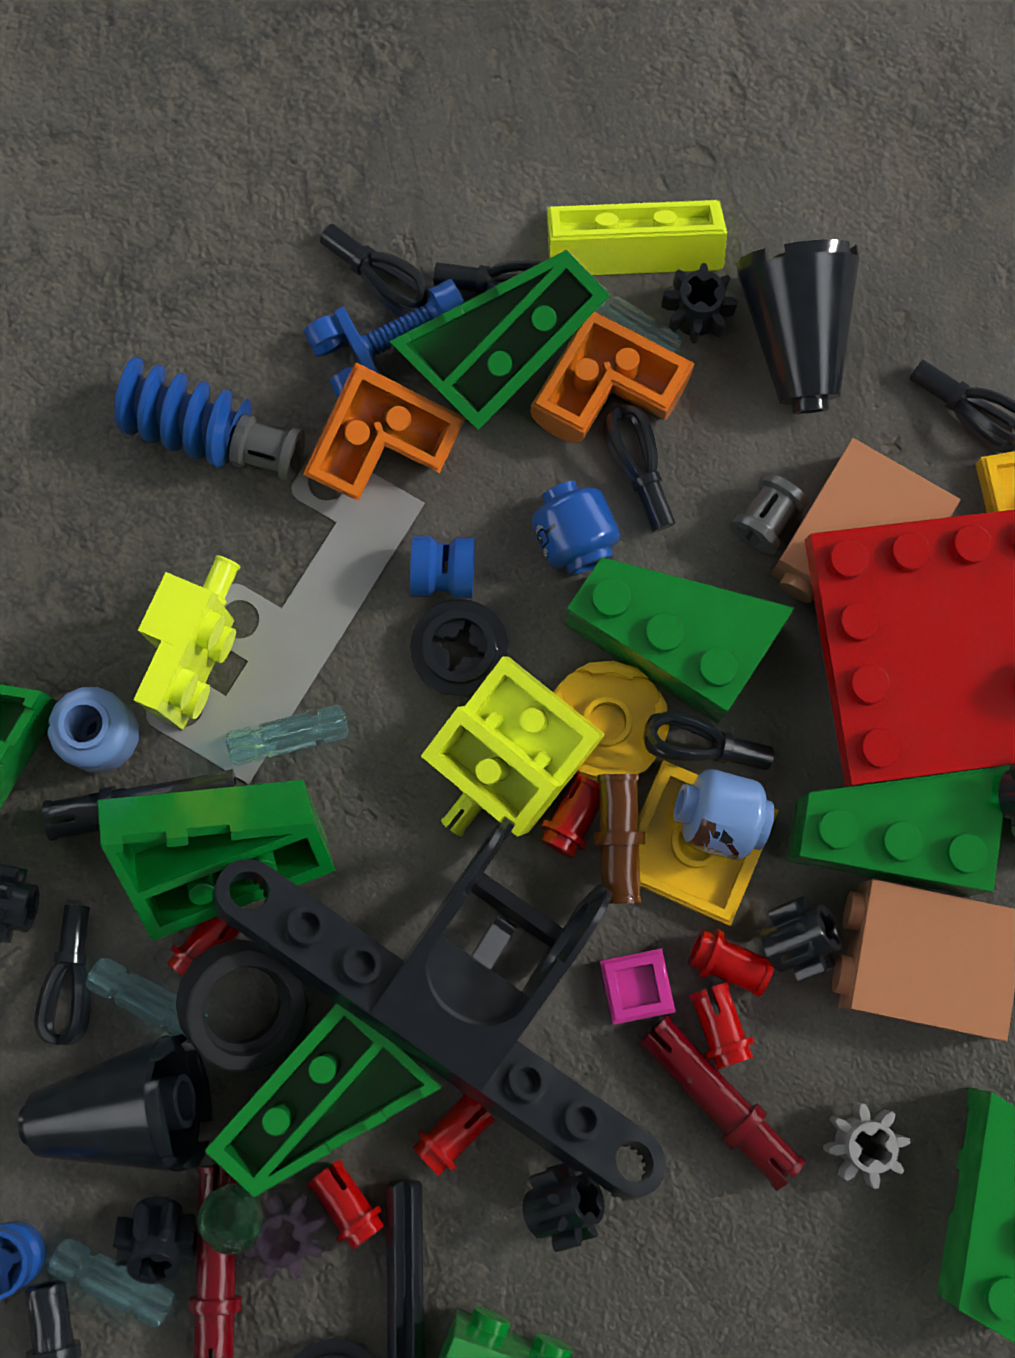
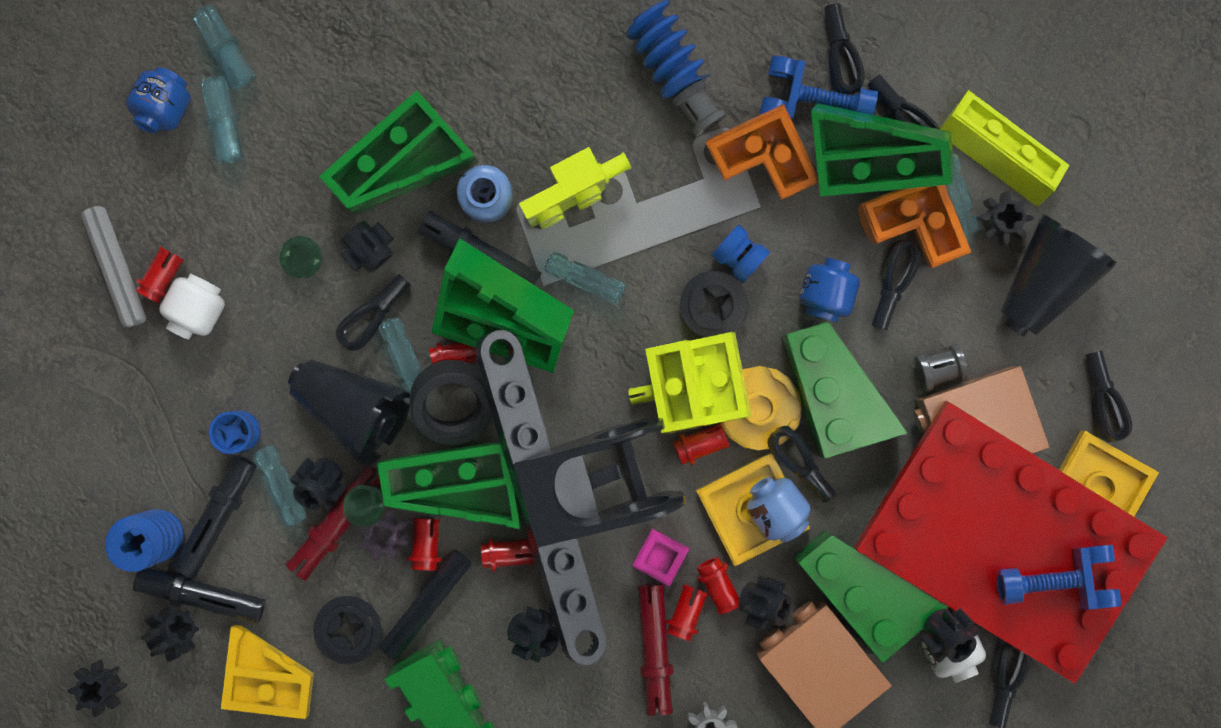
camera: 40 degrees right, 10 degrees up
(620, 836) = (714, 475): reddish brown pin -> none

